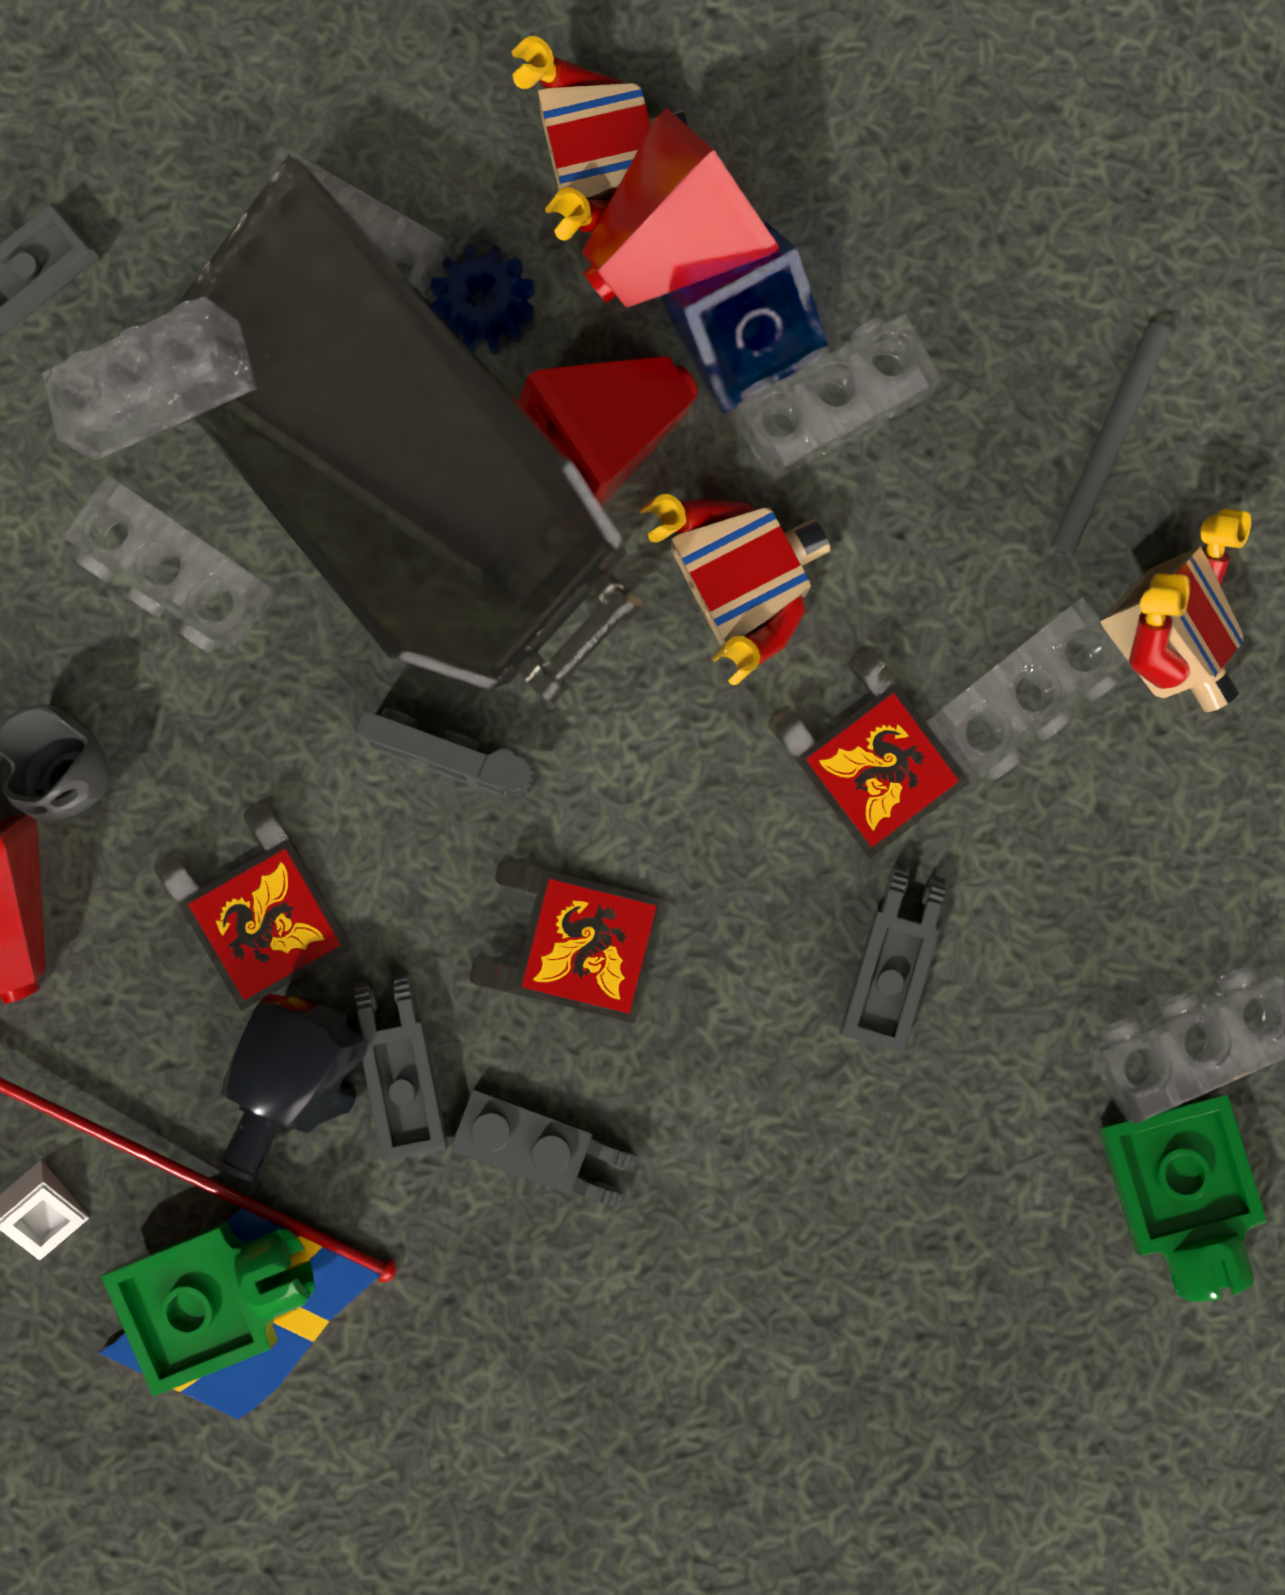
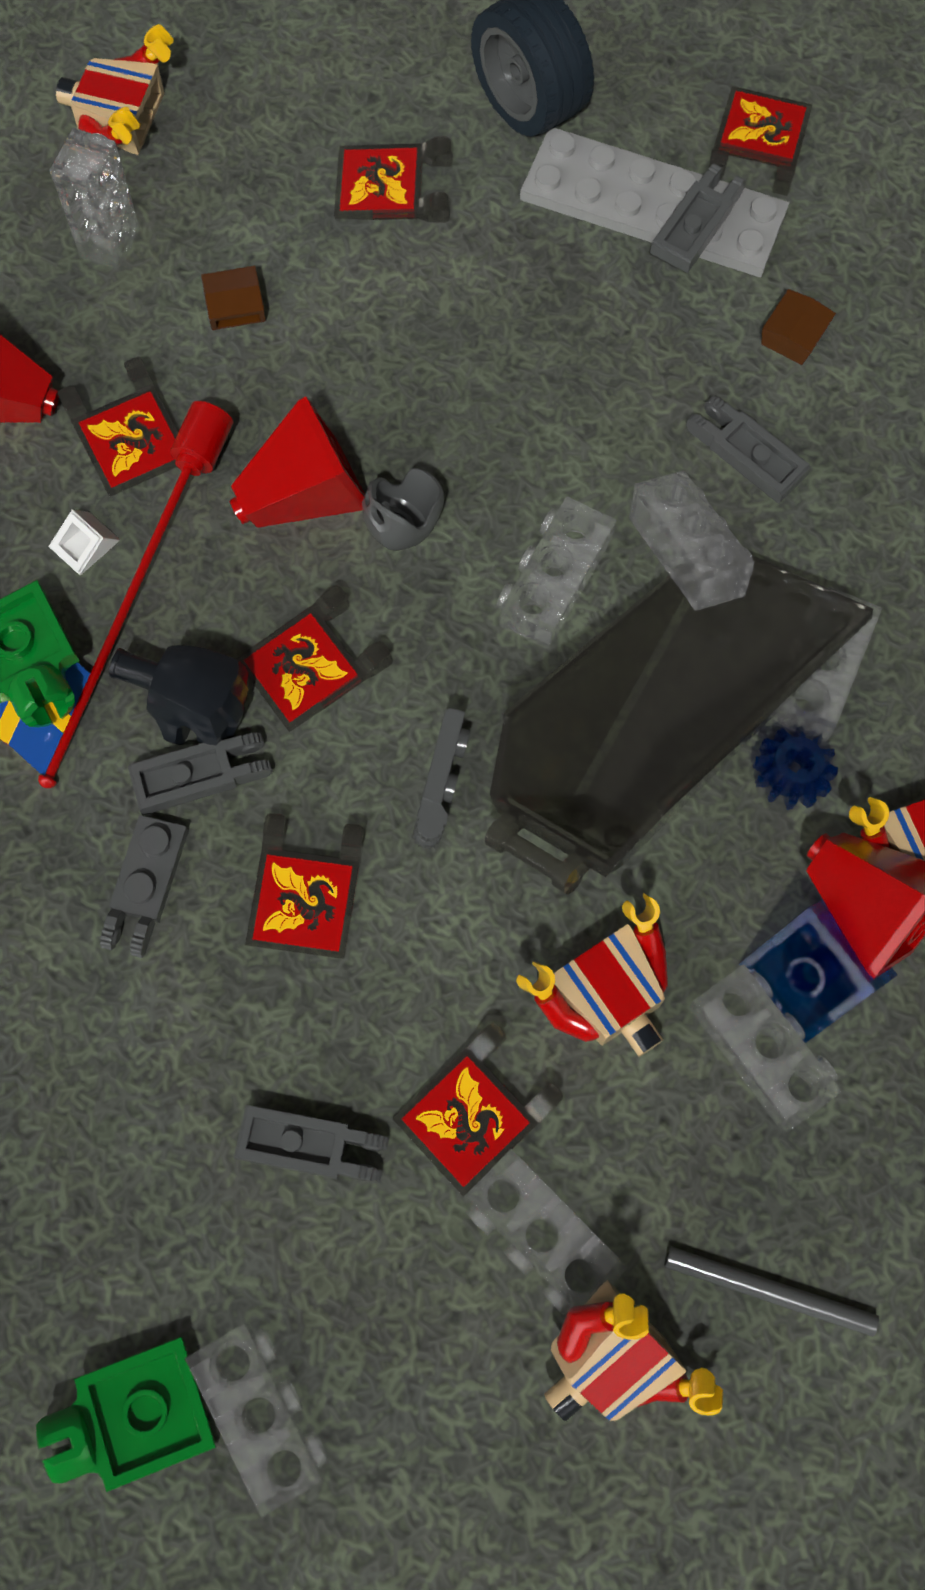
camera: 85 degrees right, 15 degrees down
(609, 414) = (712, 865): red slope -> none

